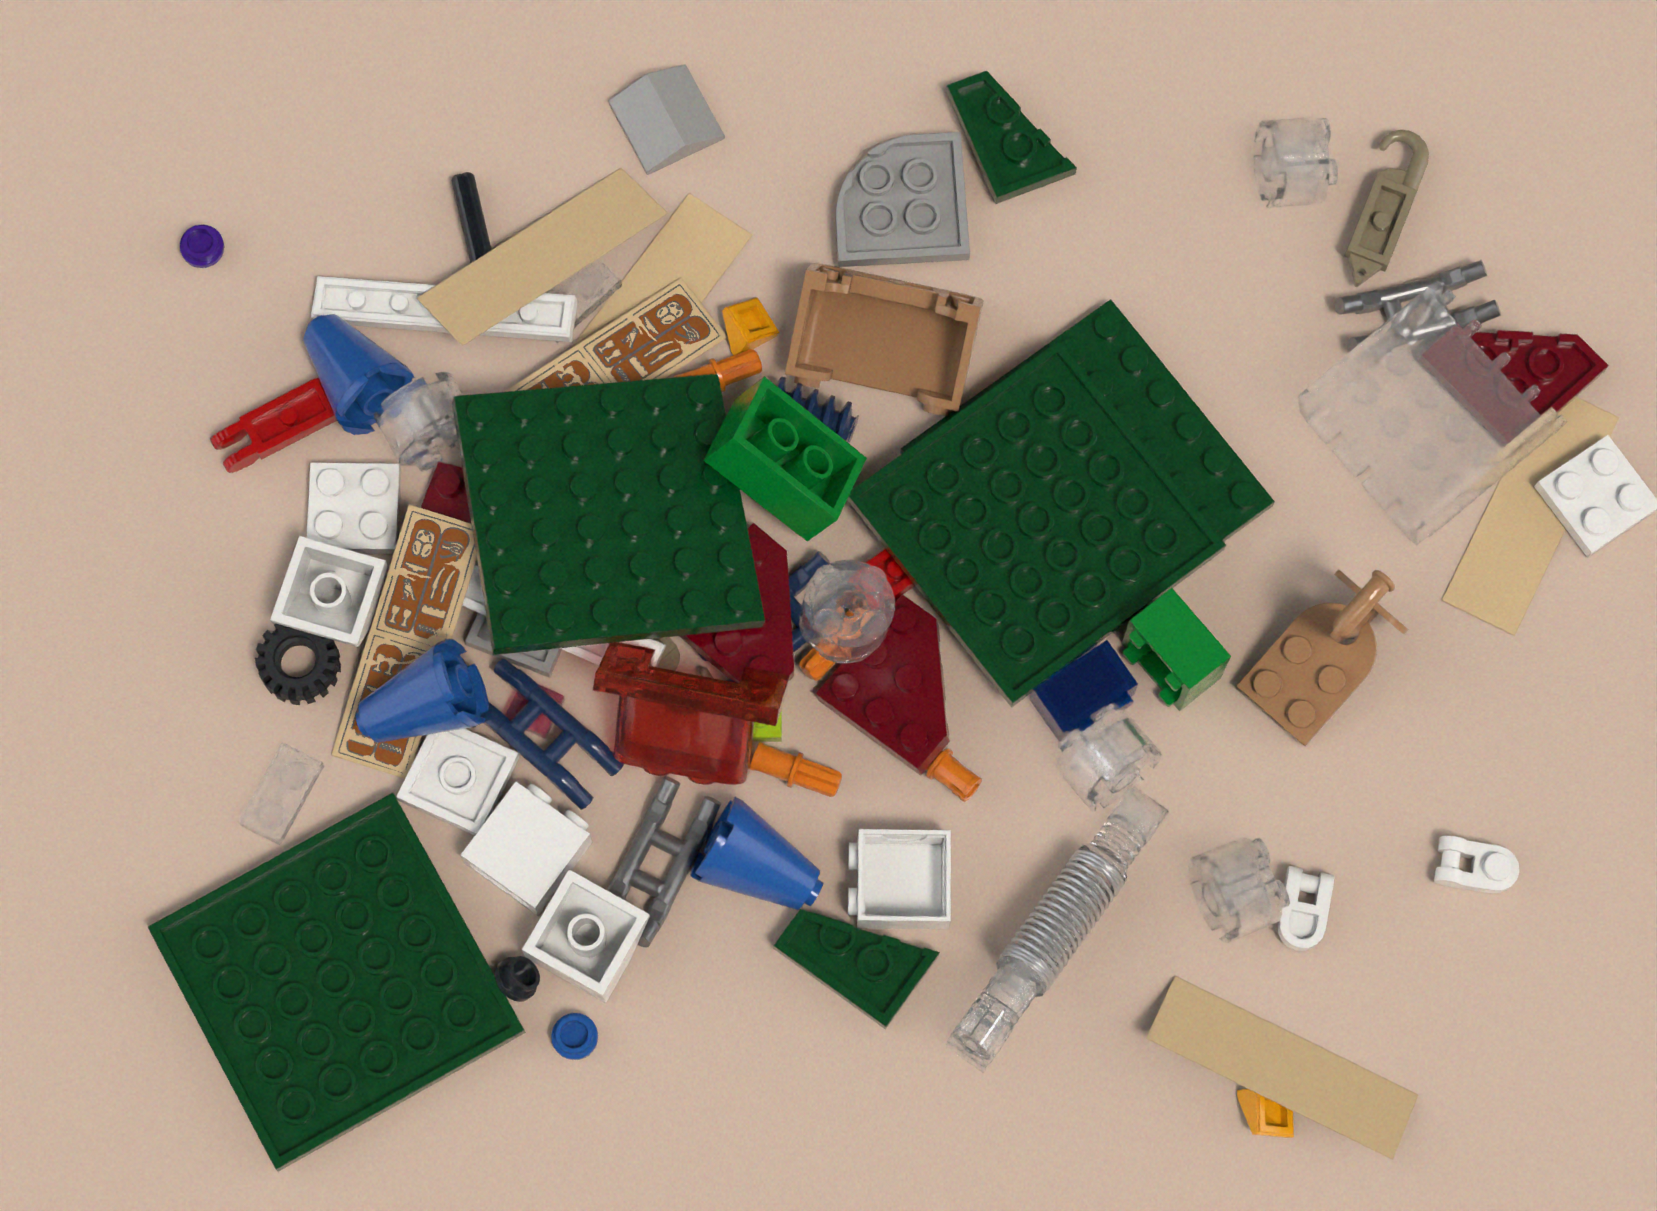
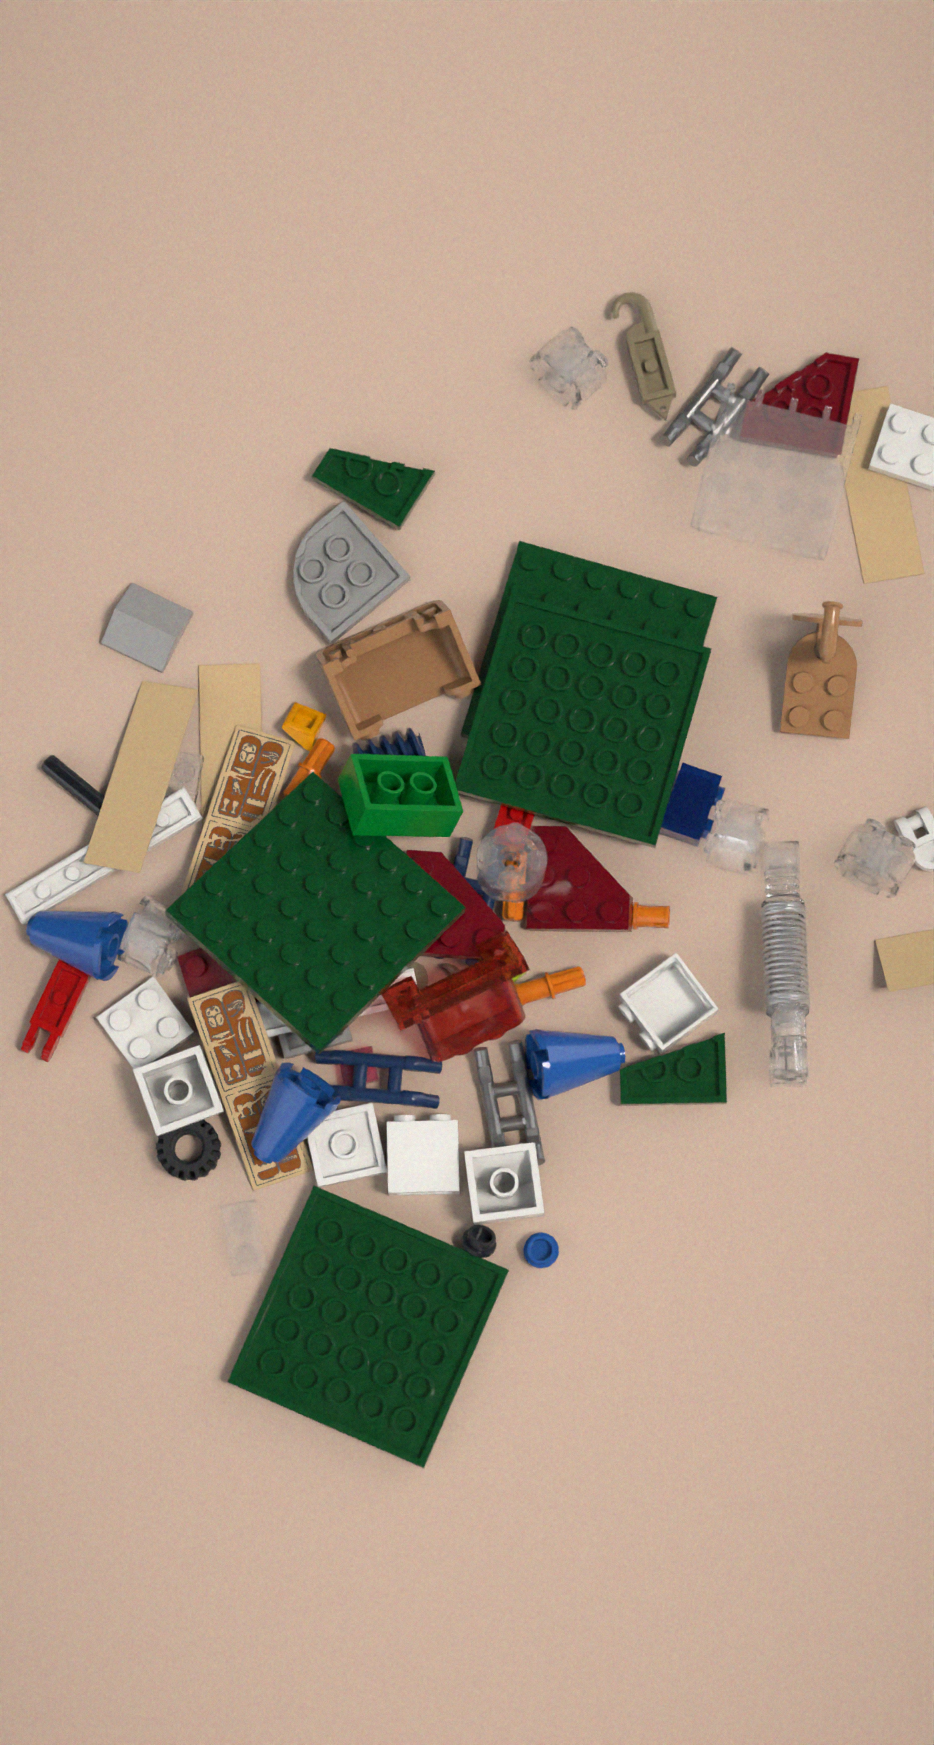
camera: 30 degrees left, 5 degrees up
(1174, 650) = (729, 738): green container -> none

